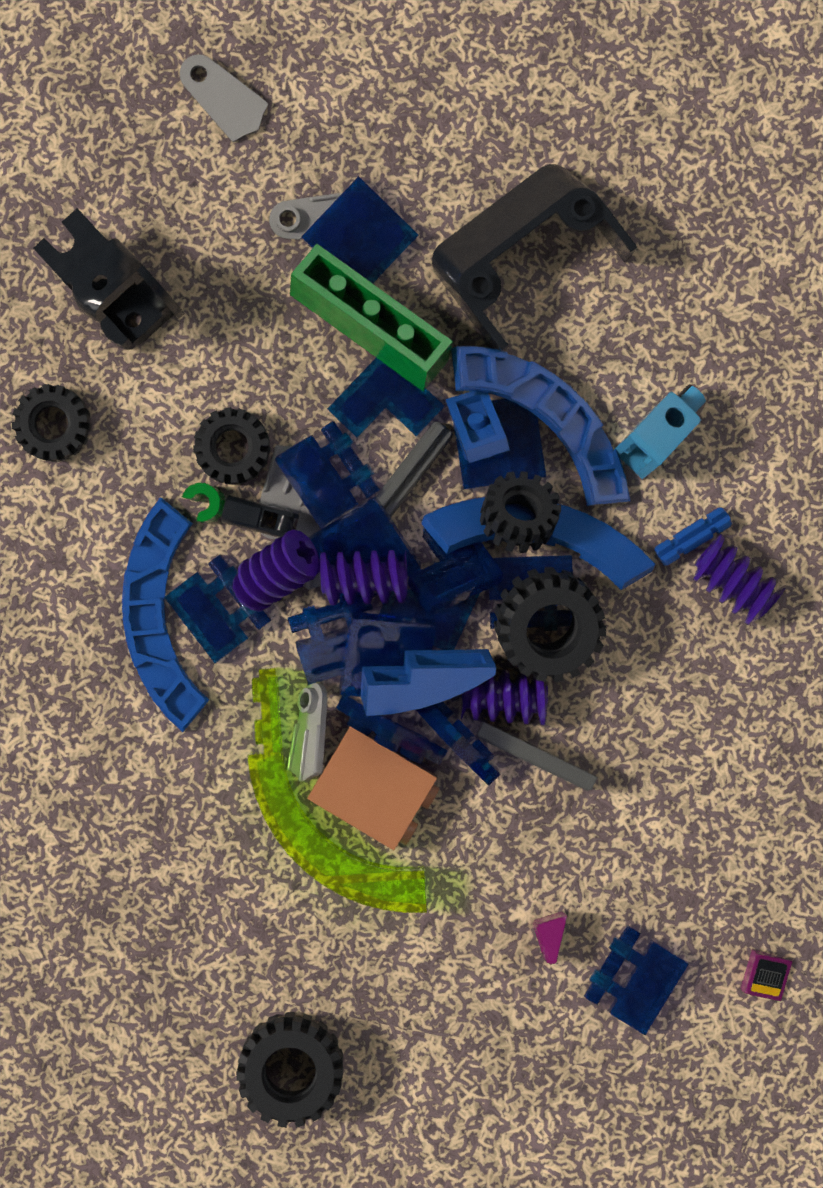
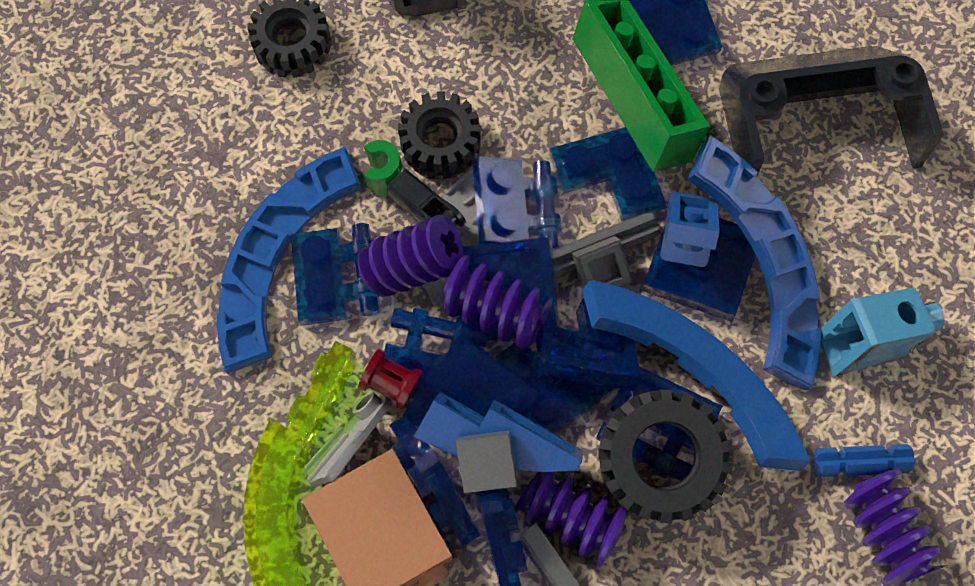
camera: 25 degrees right, 20 degrees down
(330, 668) = (390, 379): none -> dark red bush
(424, 490) = (603, 263): none -> dark grey tile
(429, 706) = (486, 461): none -> dark grey tile
(517, 531) = (691, 328): black tyre -> none

